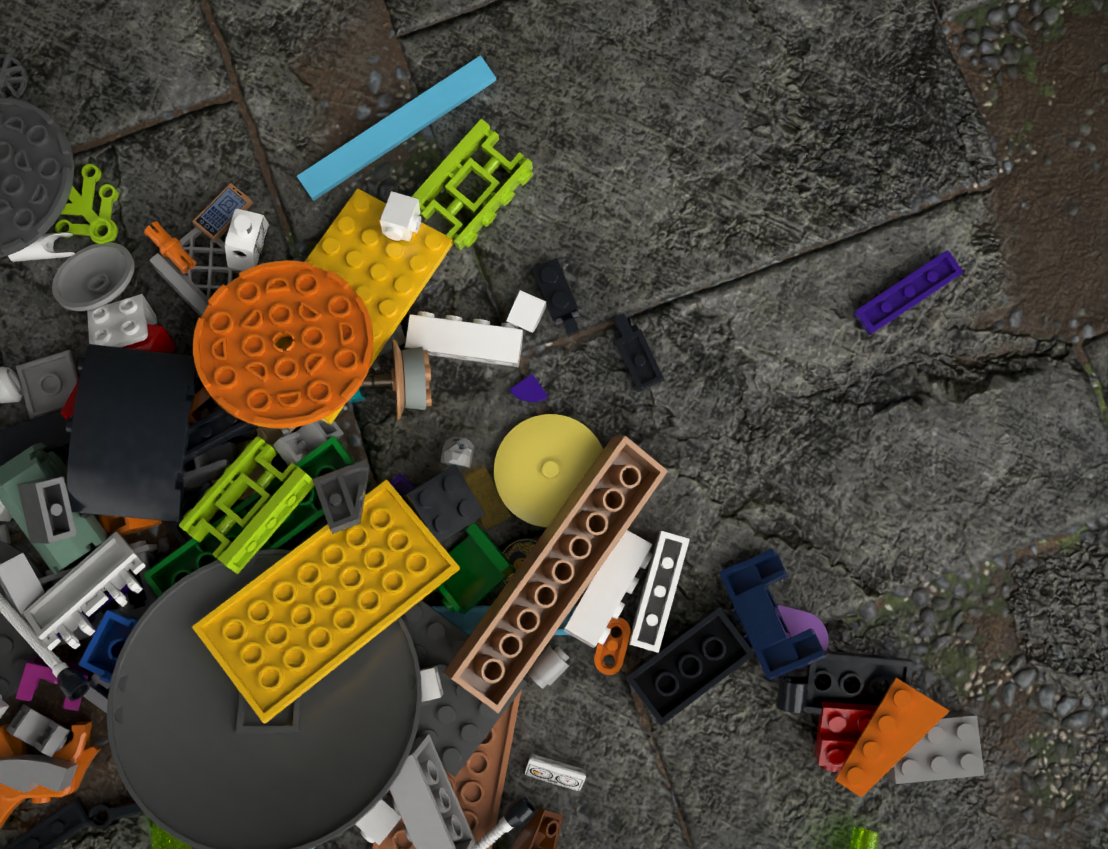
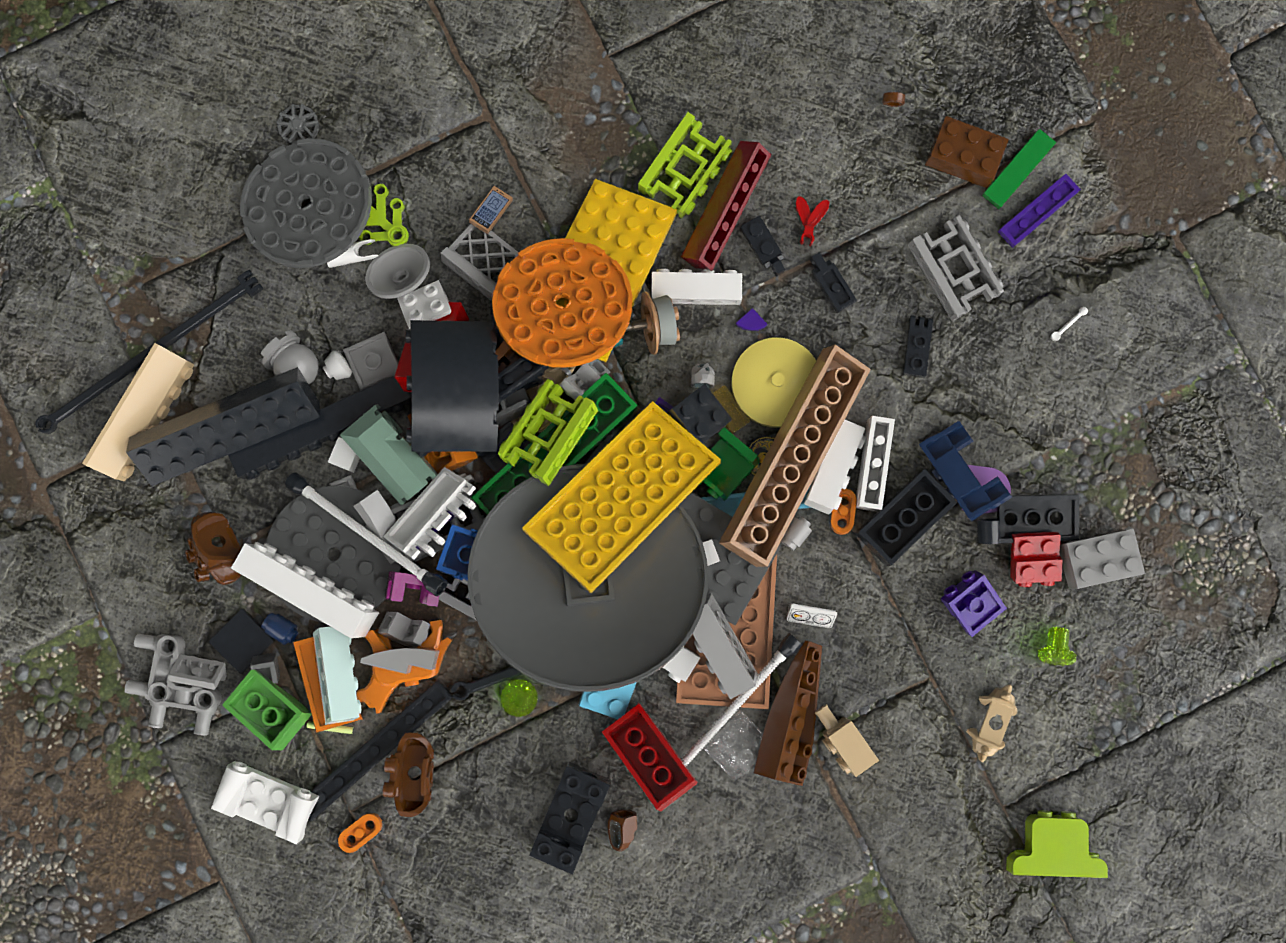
camera: 10 degrees left, 0 degrees up
(47, 510) = (398, 450): dark grey brick -> none
(170, 247) = (455, 241): orange pin -> none
(245, 235) = (514, 225): white torso -> none
(343, 495) = (622, 416): dark grey wing -> none
(396, 128) = (619, 128): medium azure tile -> none
(400, 217) = (636, 196): white brick -> none
(514, 241) = (726, 205): none -> brick
(526, 311) = (742, 259): white brick -> none
(620, 270) = (810, 219): none -> red piece
(734, 447) = (917, 347): none -> black hinge
(743, 131) = (893, 99): none -> reddish brown tile
(761, 782) = (973, 602): none -> dark purple plate
(816, 342) = (940, 276): none -> light grey fence
(826, 208) = (966, 152): none -> reddish brown brick
(890, 236) = (1019, 169): none -> green tile
(890, 734) = (1070, 547): orange wing -> none
(910, 453) = (1056, 335): none -> white hinge

